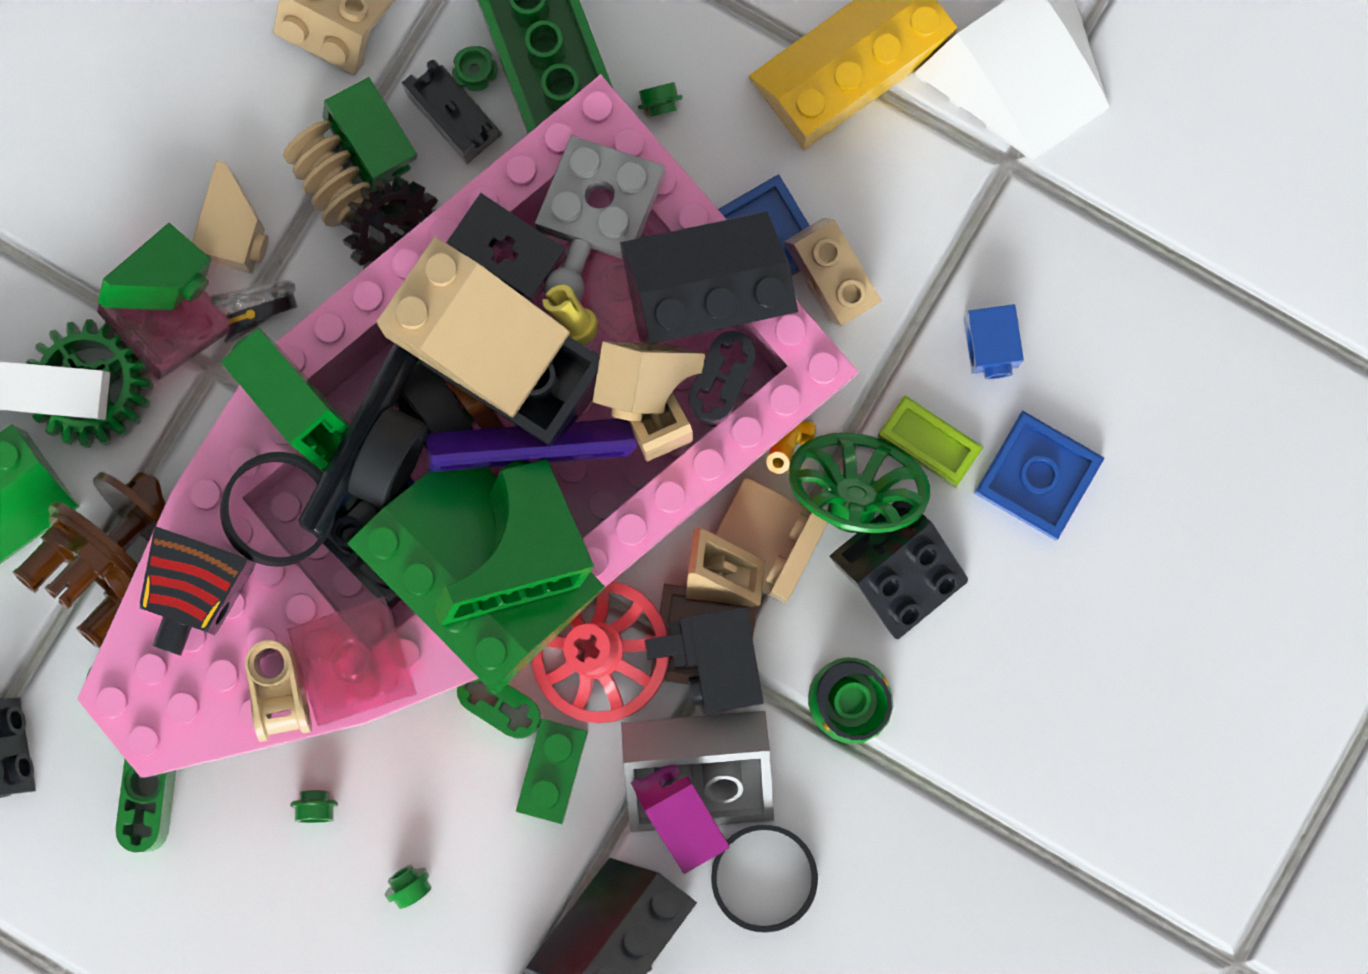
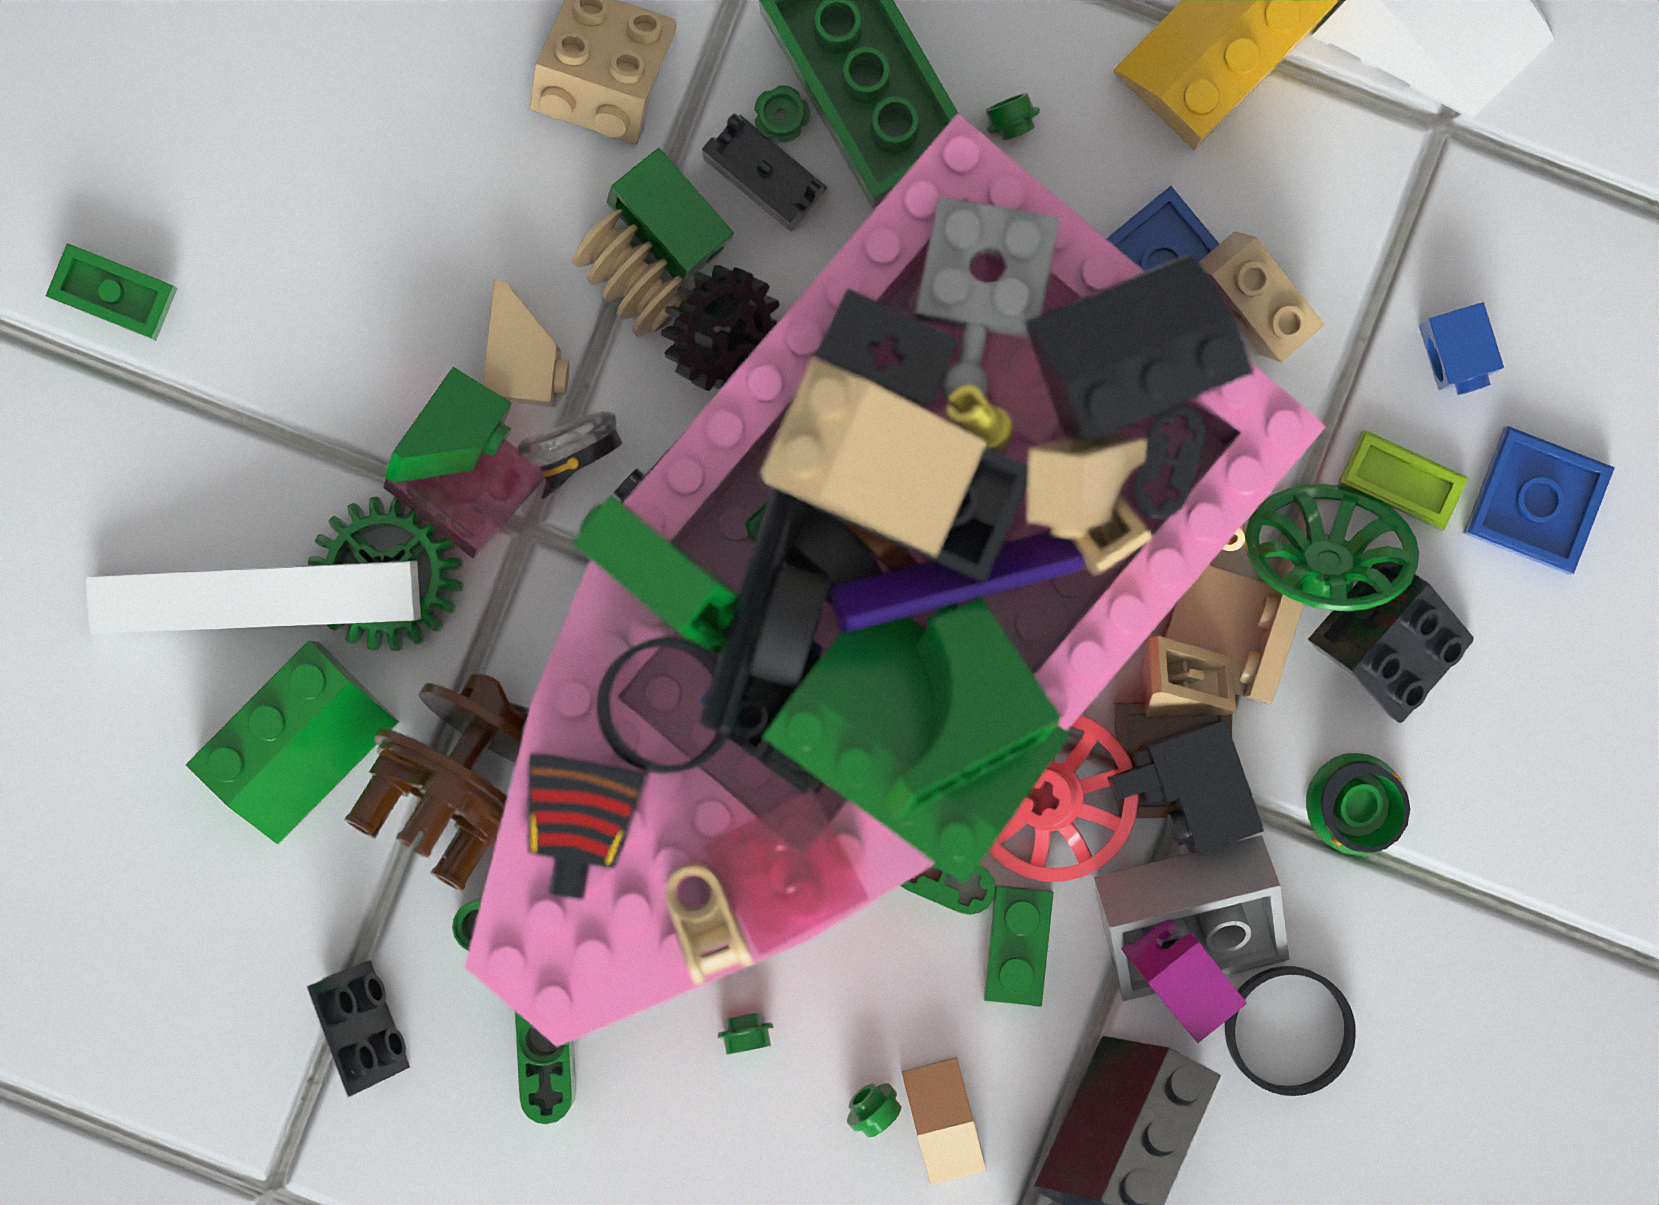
camera: 10 degrees left, 5 degrees up
(464, 907) = (943, 1120): none -> tan slope

